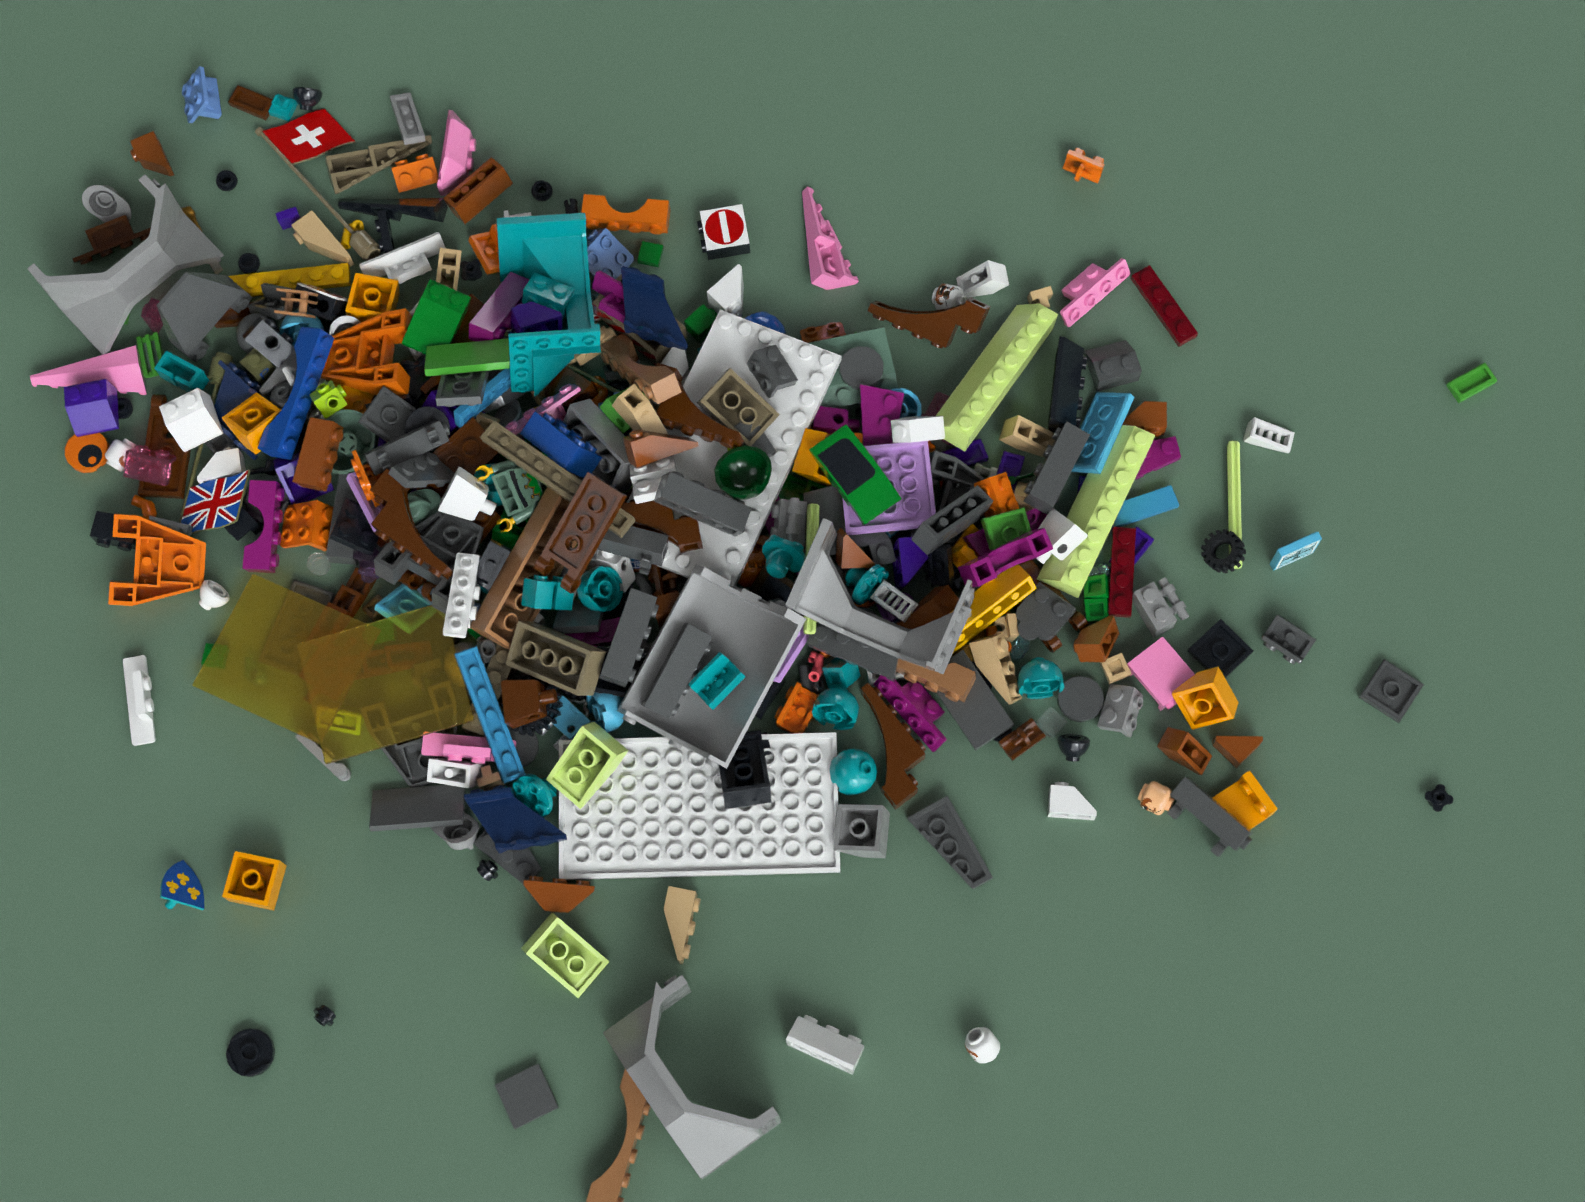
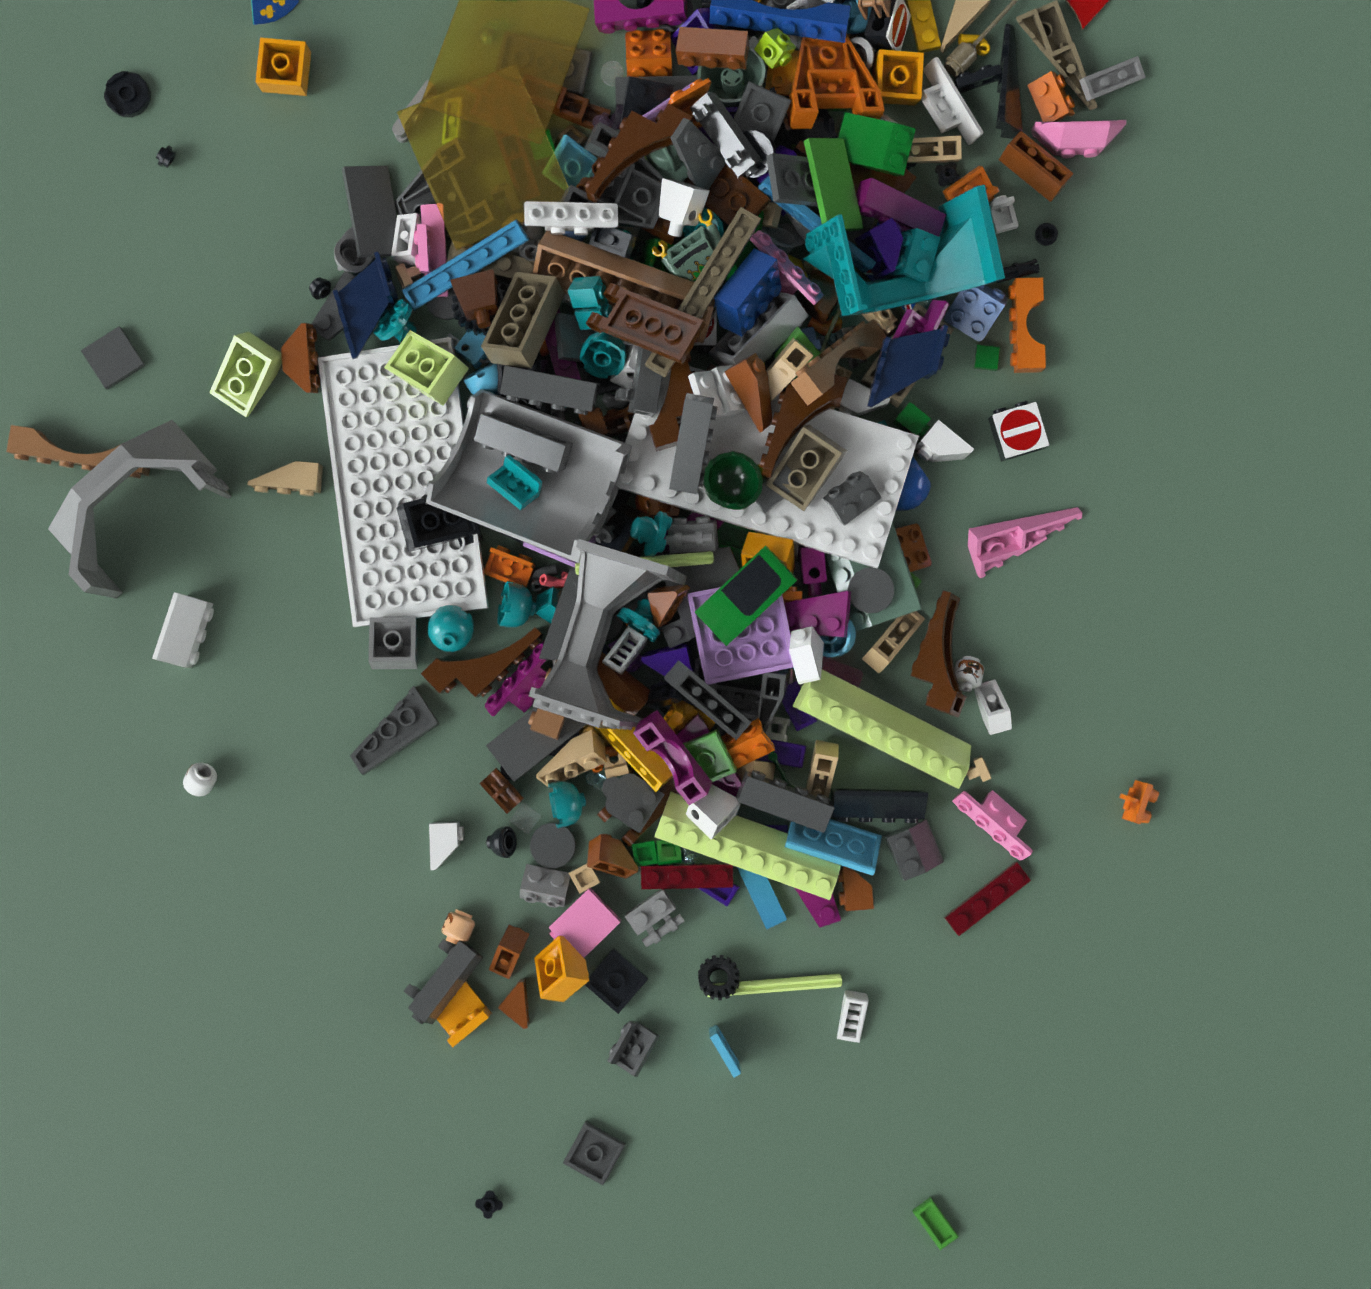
camera: 75 degrees right, 15 degrees up
(912, 363) = (892, 640): none -> tan slope

